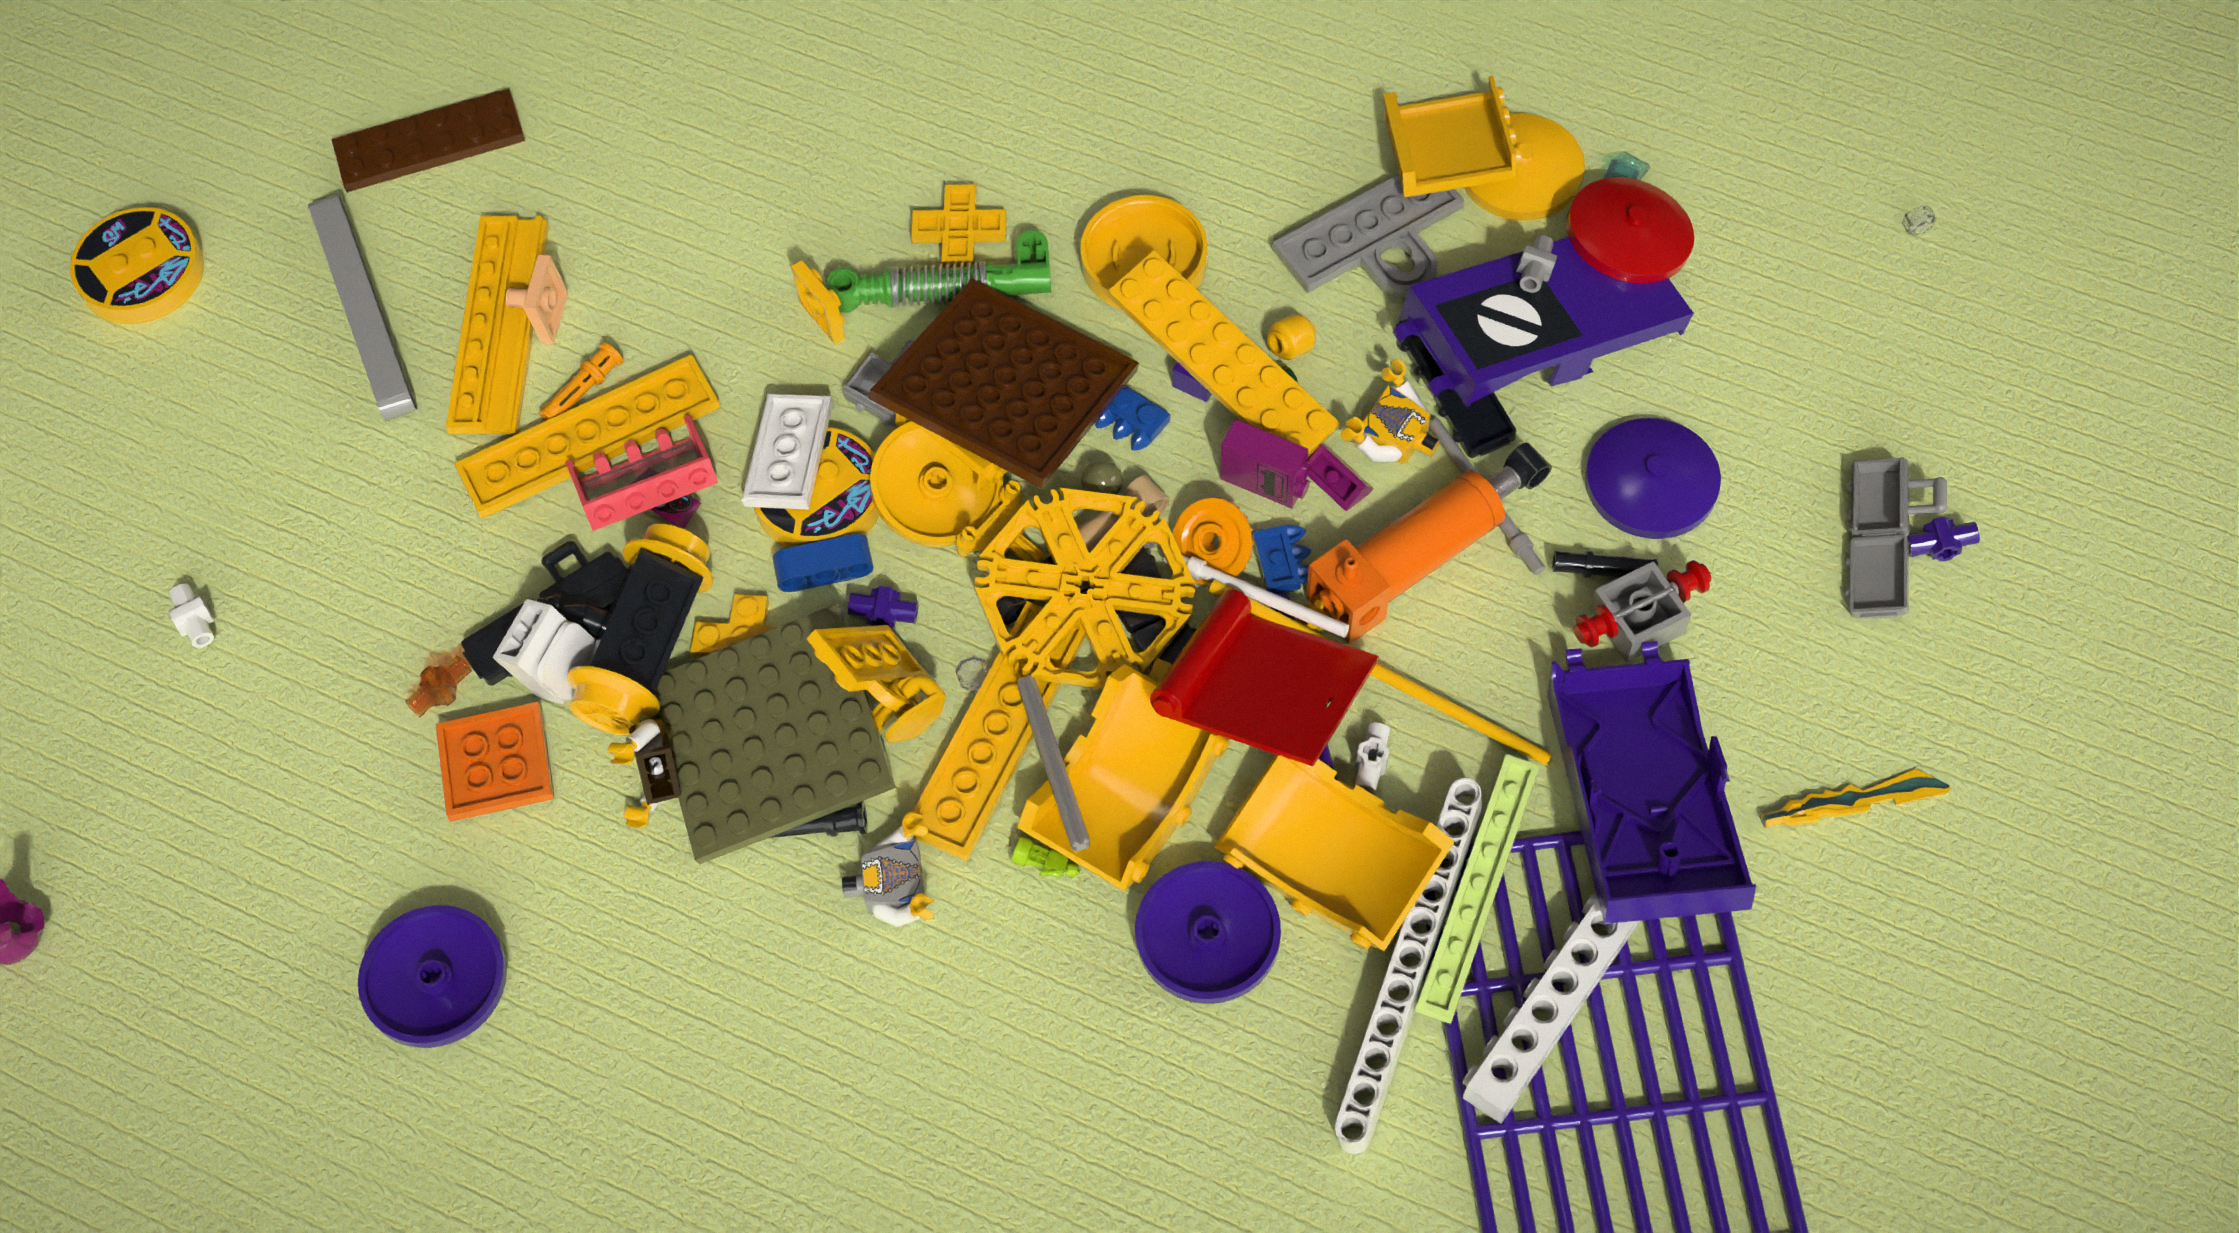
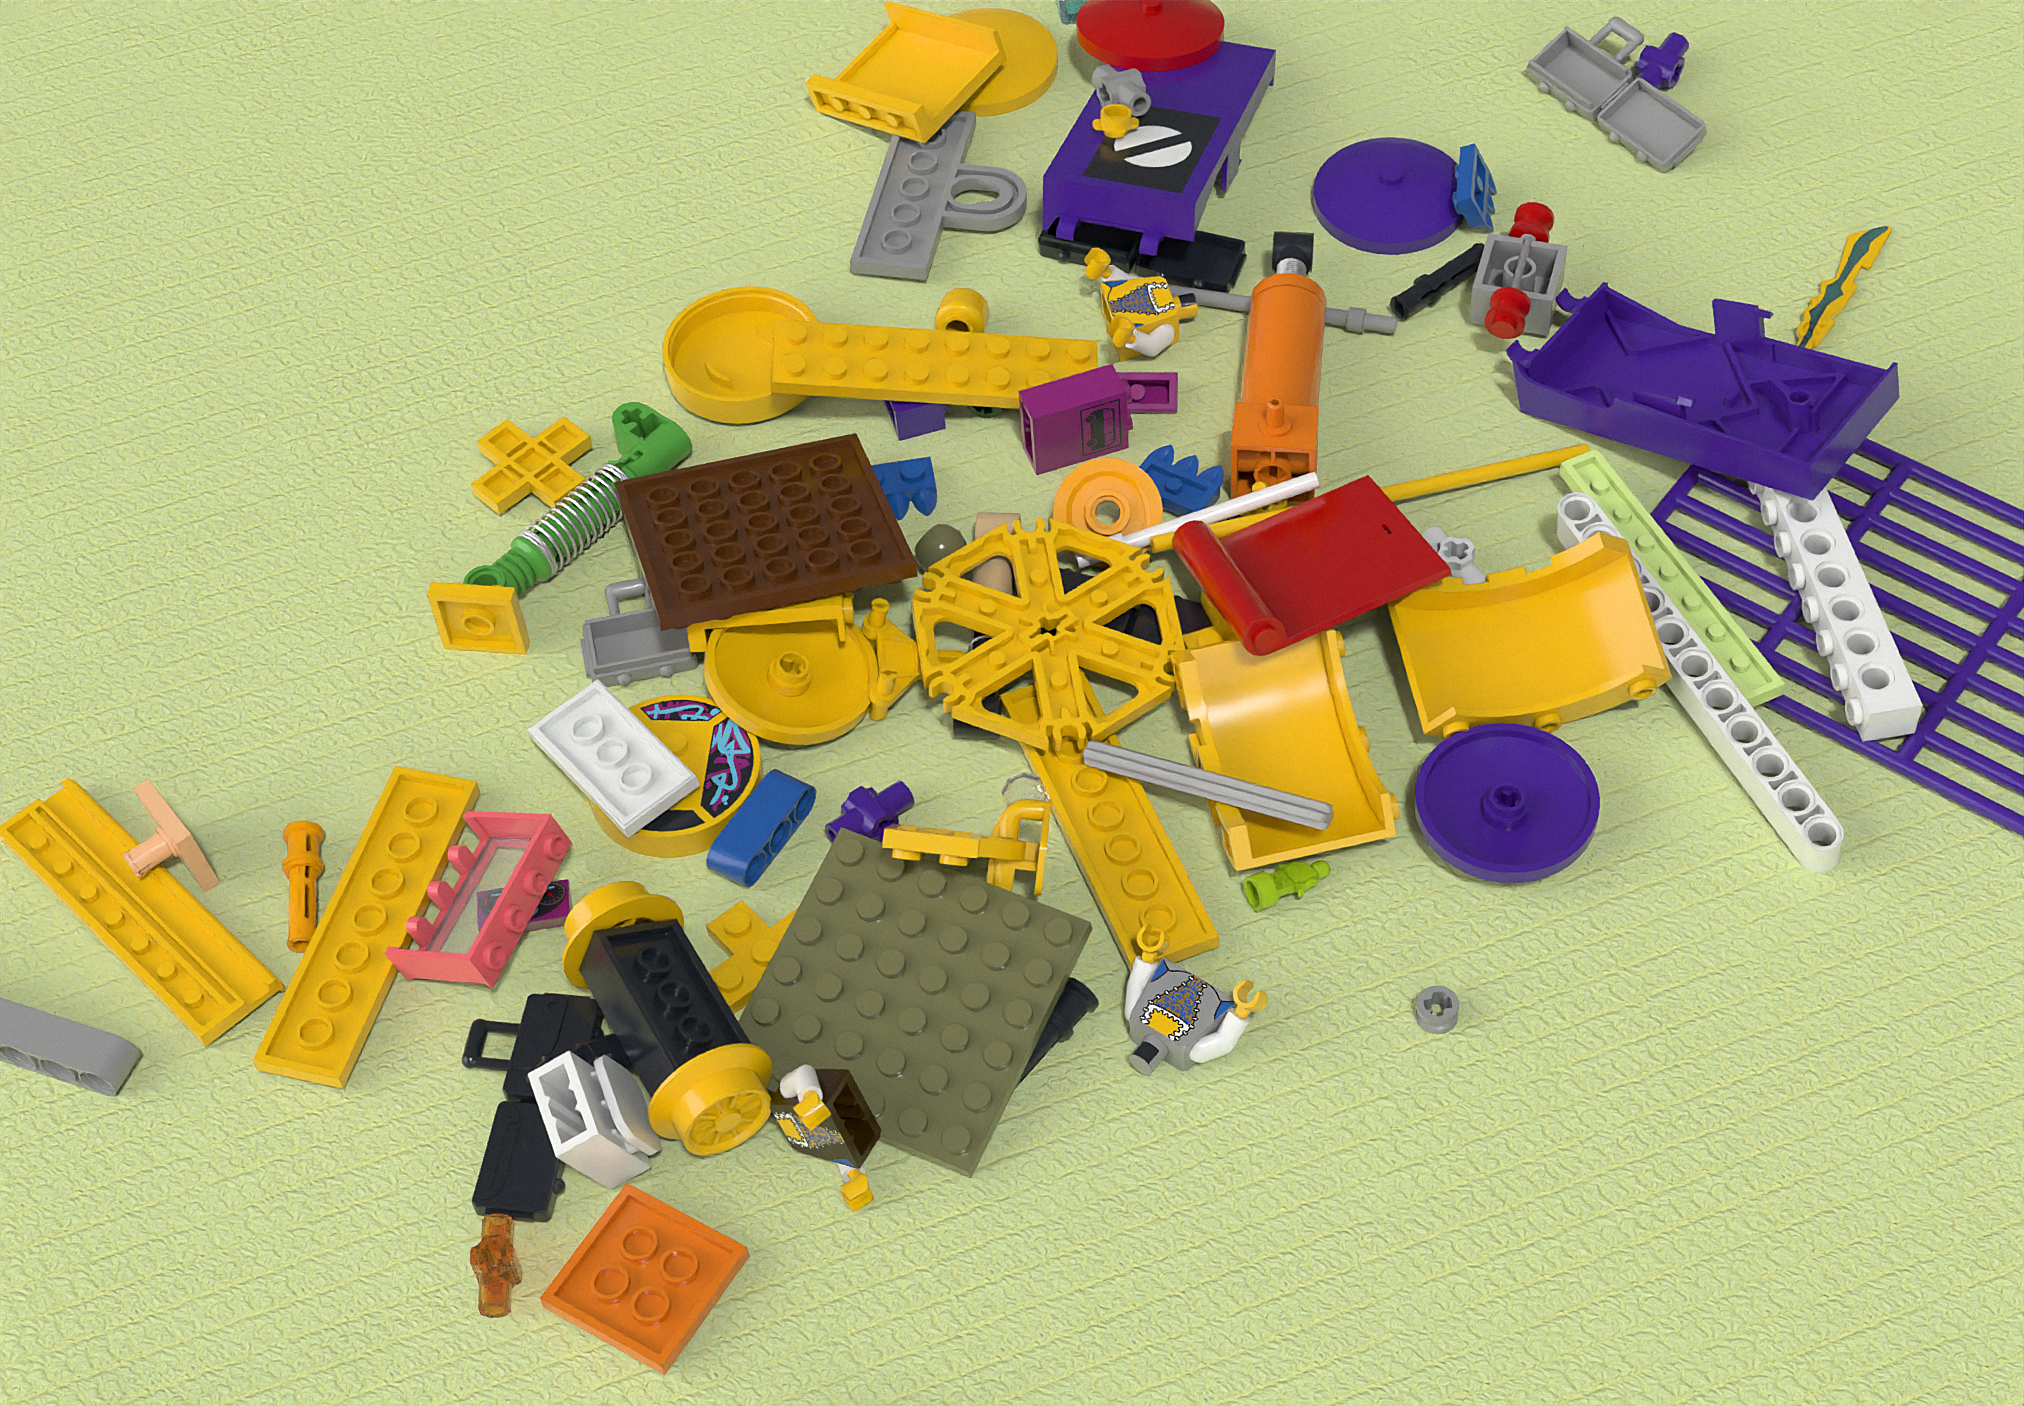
camera: 45 degrees left, 10 degrees down
(1029, 1022) = (1450, 1007): none -> light grey bush
(1503, 283) = (1115, 121): none -> yellow plate
(1697, 522) = (1474, 189): none -> blue plate

